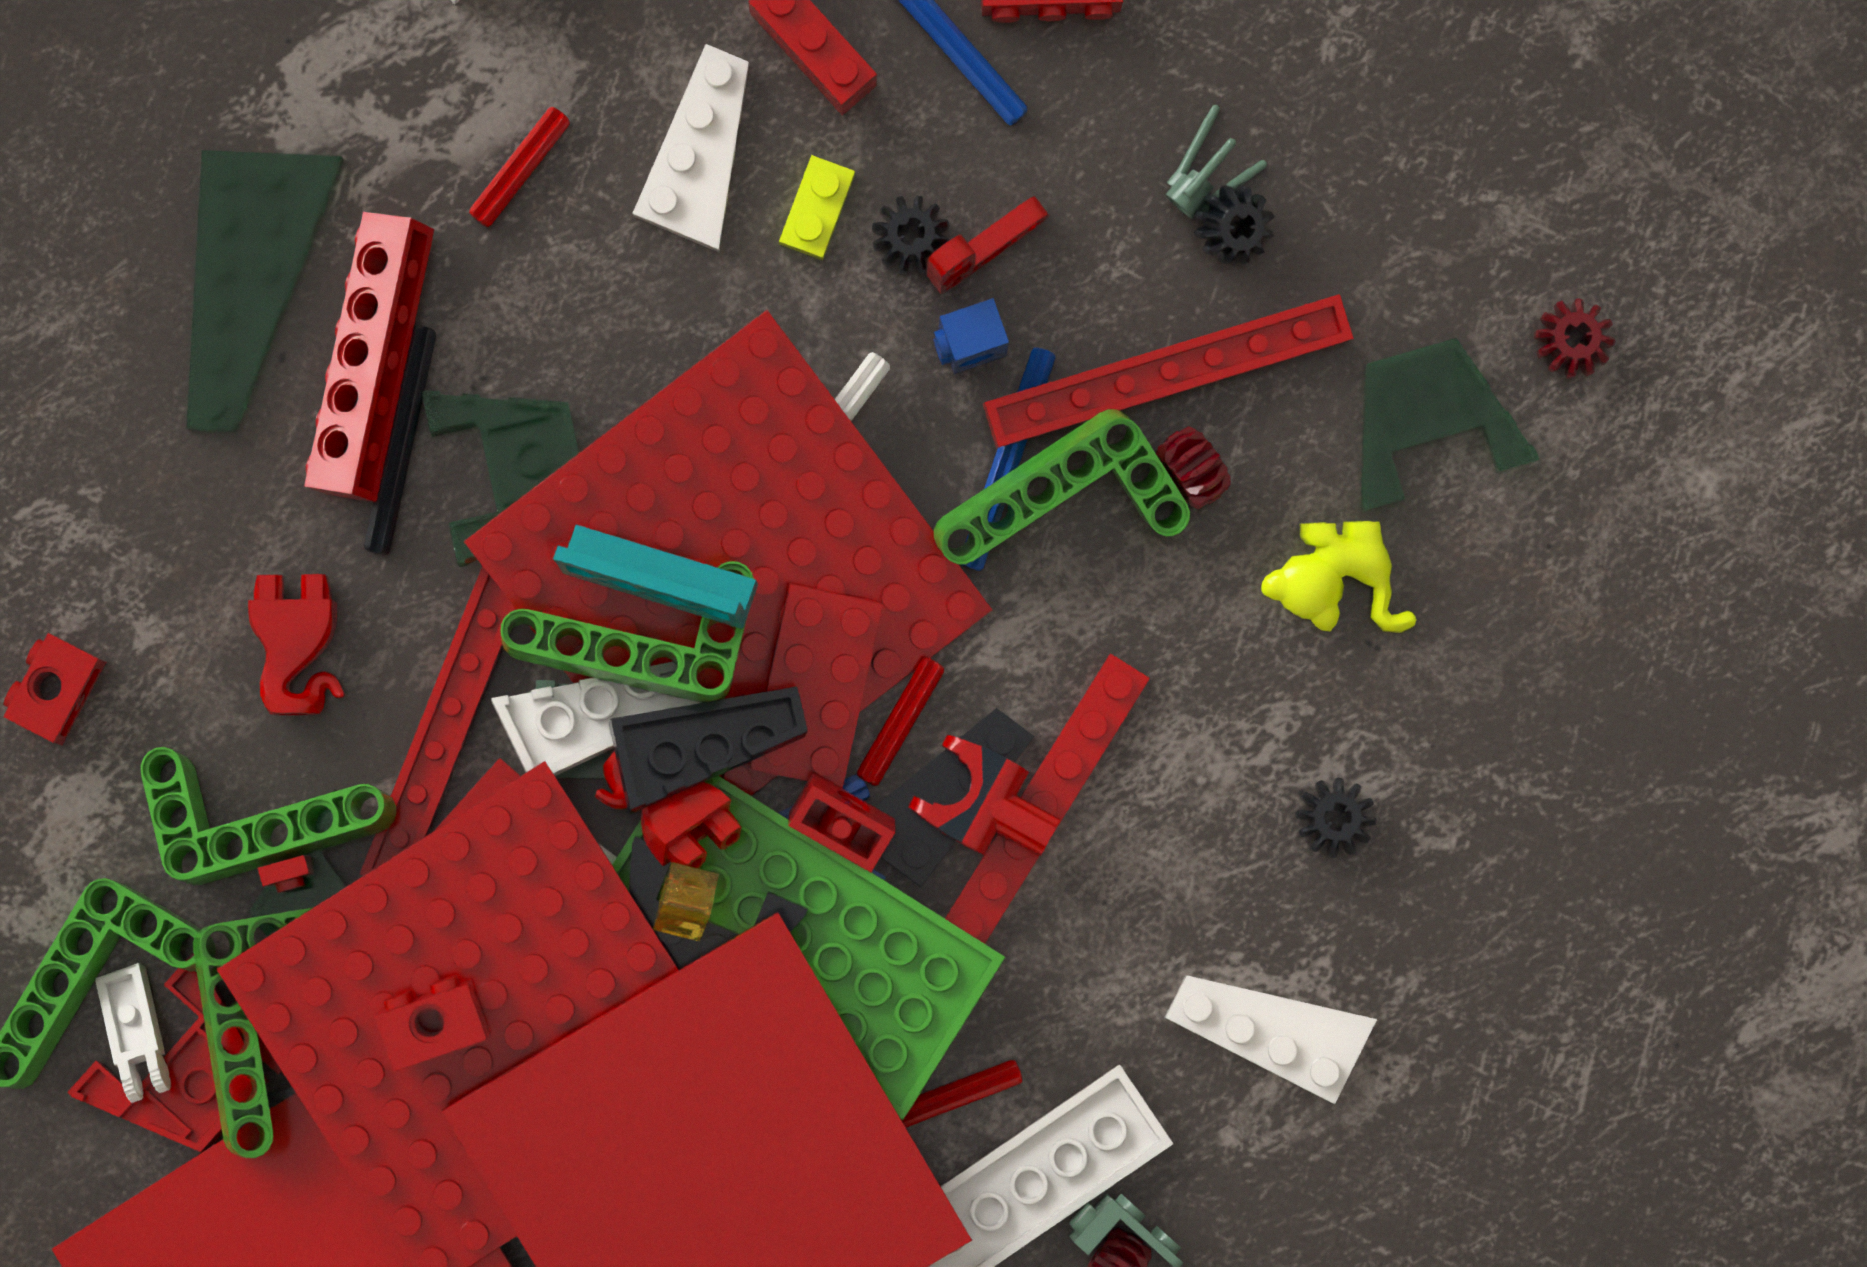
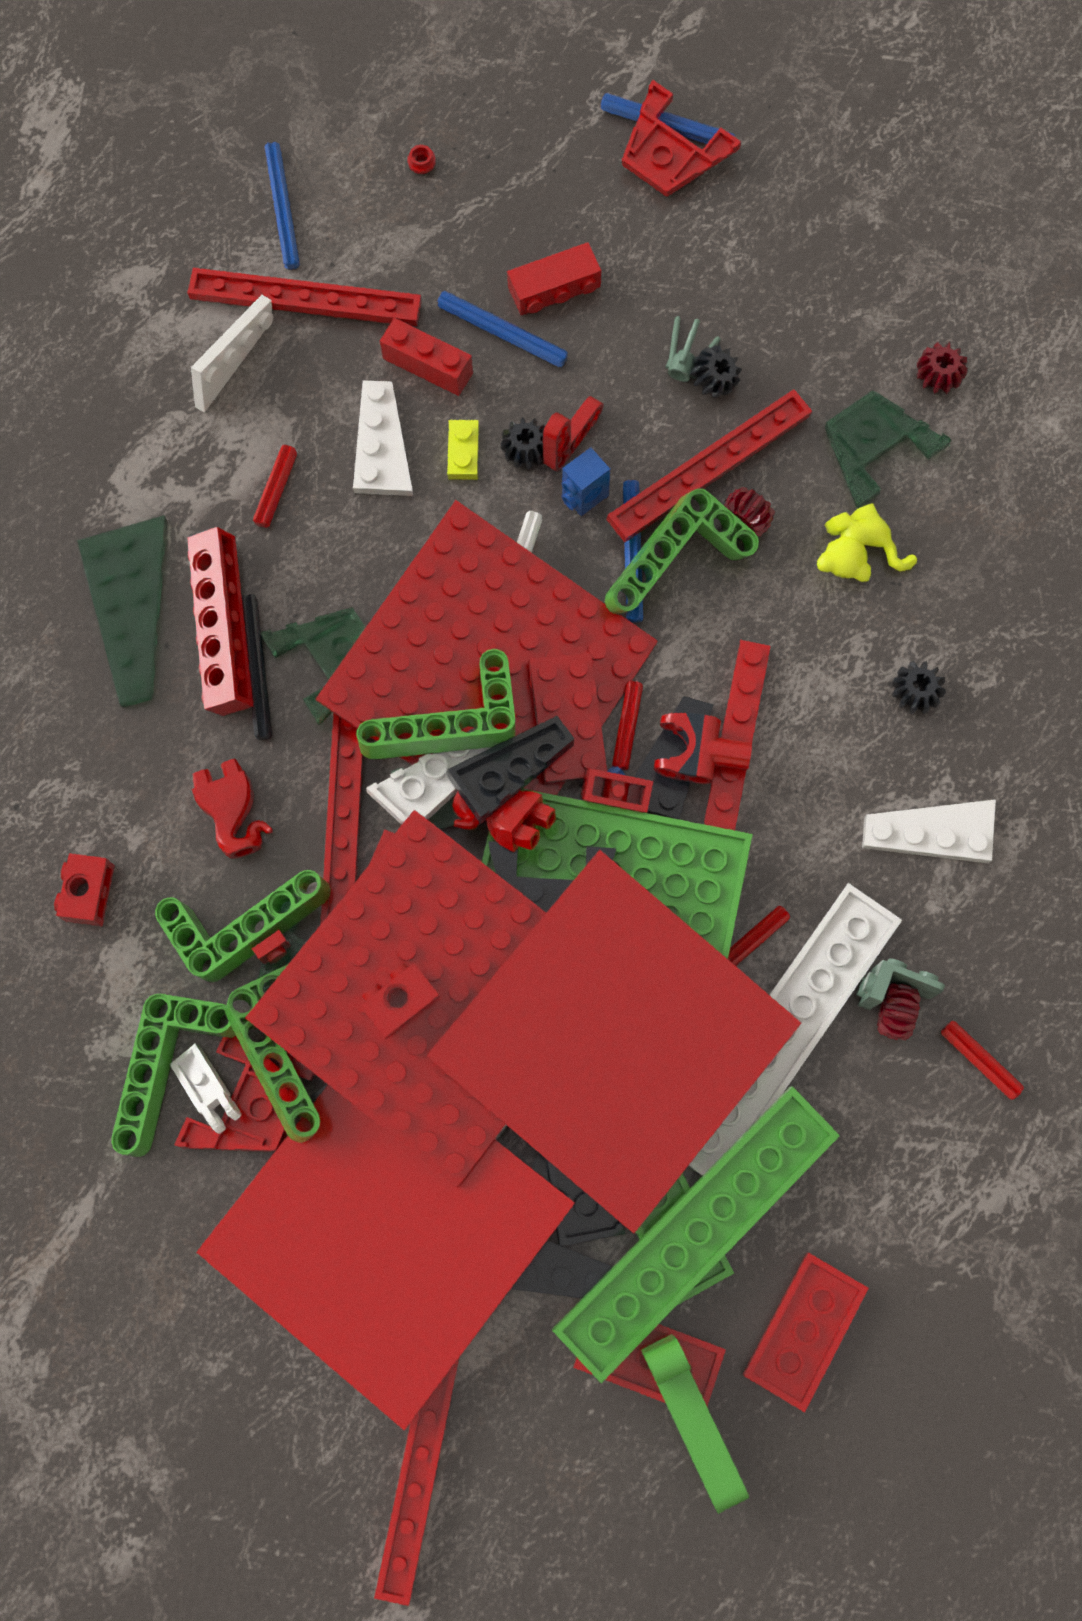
camera: 10 degrees left, 10 degrees down
(657, 576) = (445, 673): teal fence -> none
(685, 901) = (537, 866): clear yellow brick -> none

